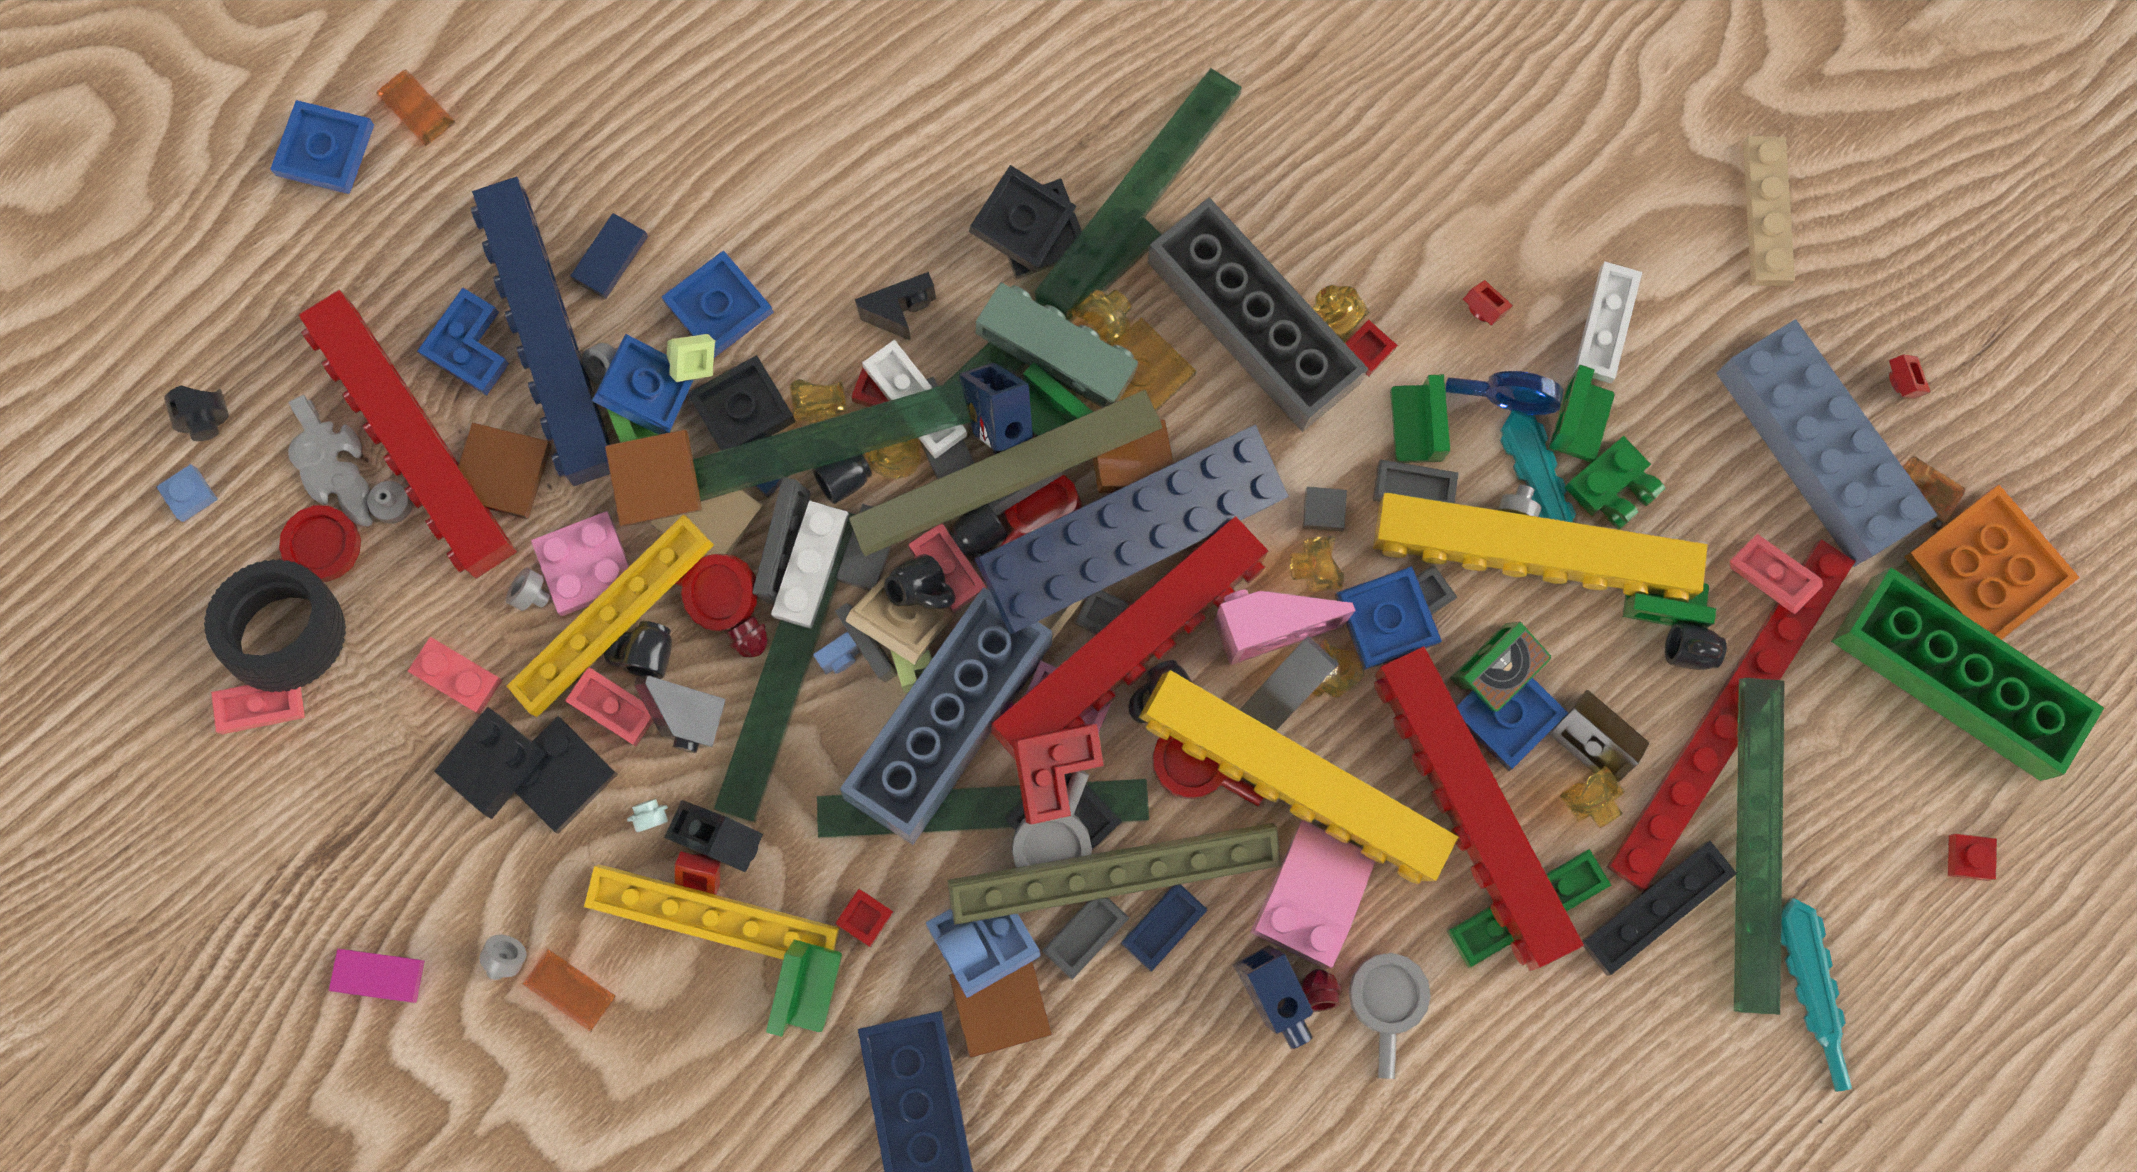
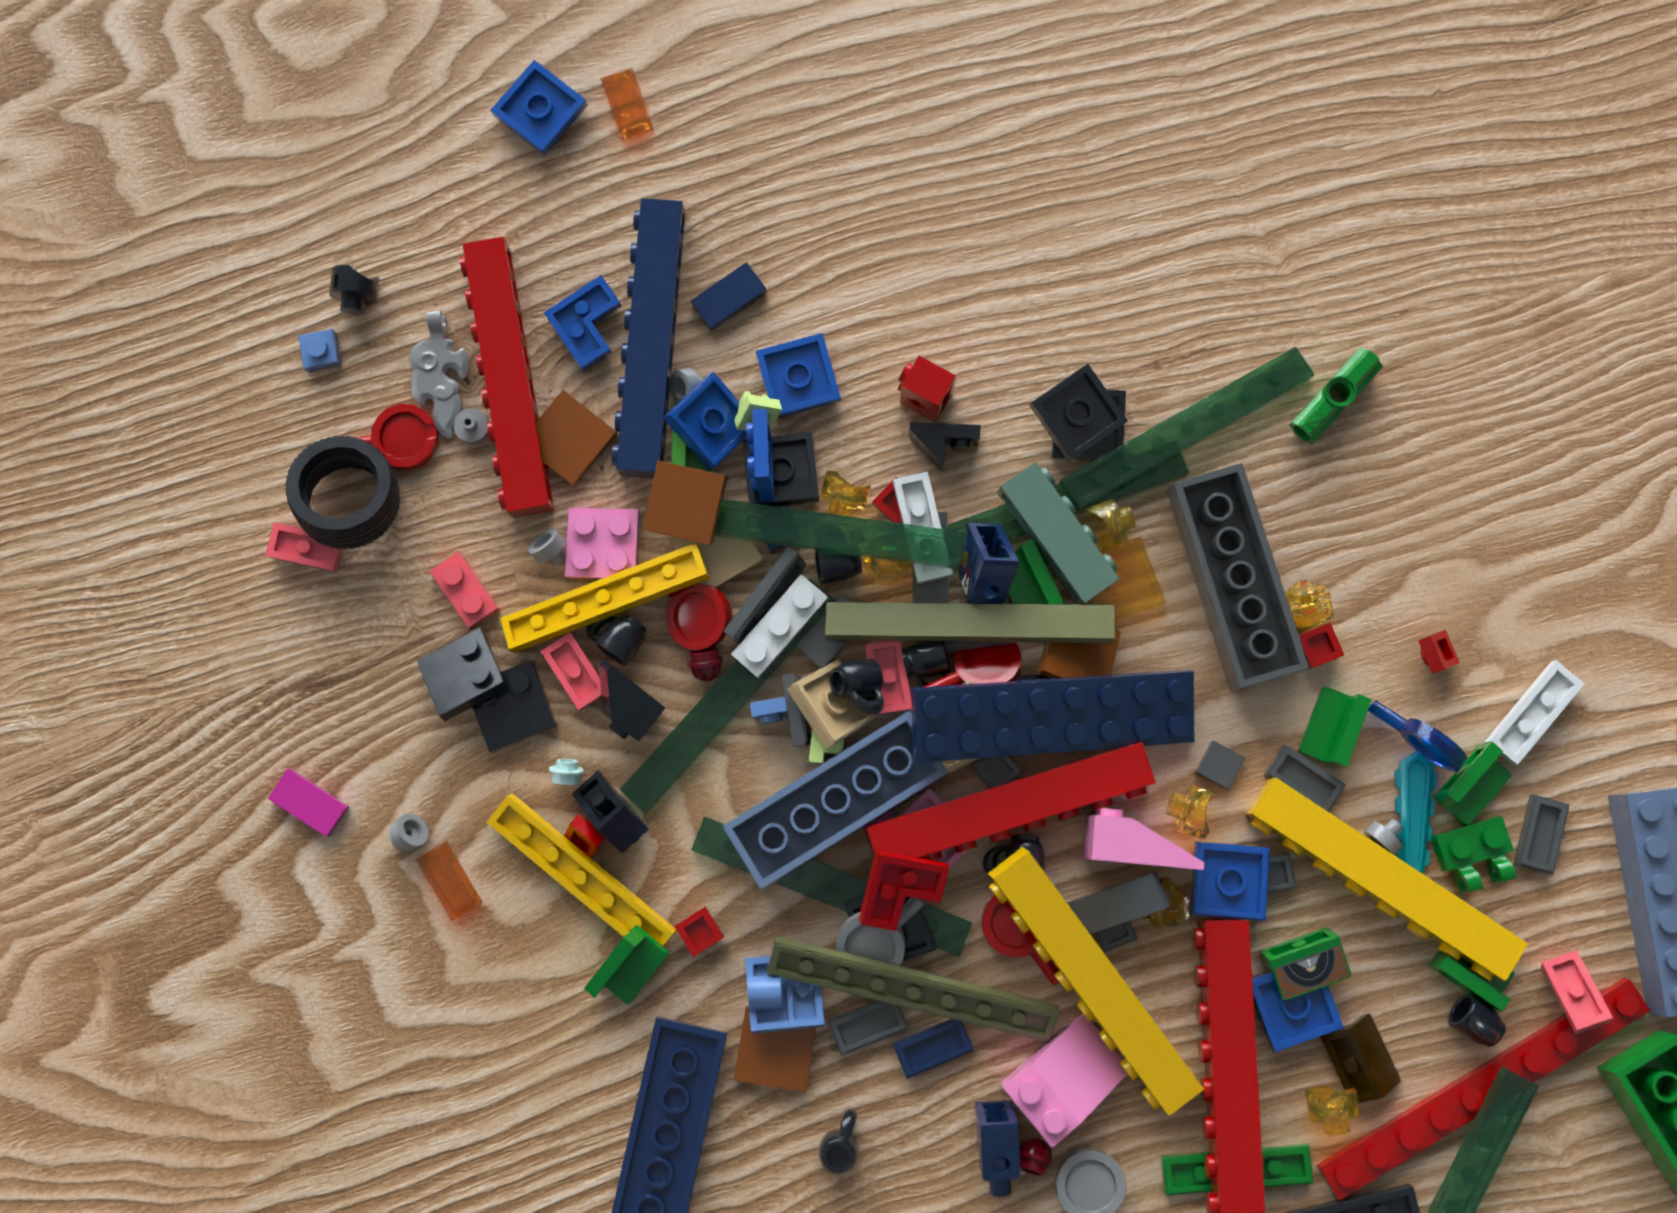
camera: 35 degrees right, 5 degrees up
(712, 395) = (760, 459): none -> blue plate
(855, 258) = (926, 388): none -> red brick
(1113, 1077) = (839, 1147): none -> black piece
(1277, 80) = (1349, 382): none -> green piece
(1300, 724) = (1116, 936): none -> dark grey tile
(1670, 438) = (1541, 834): none -> dark grey tile

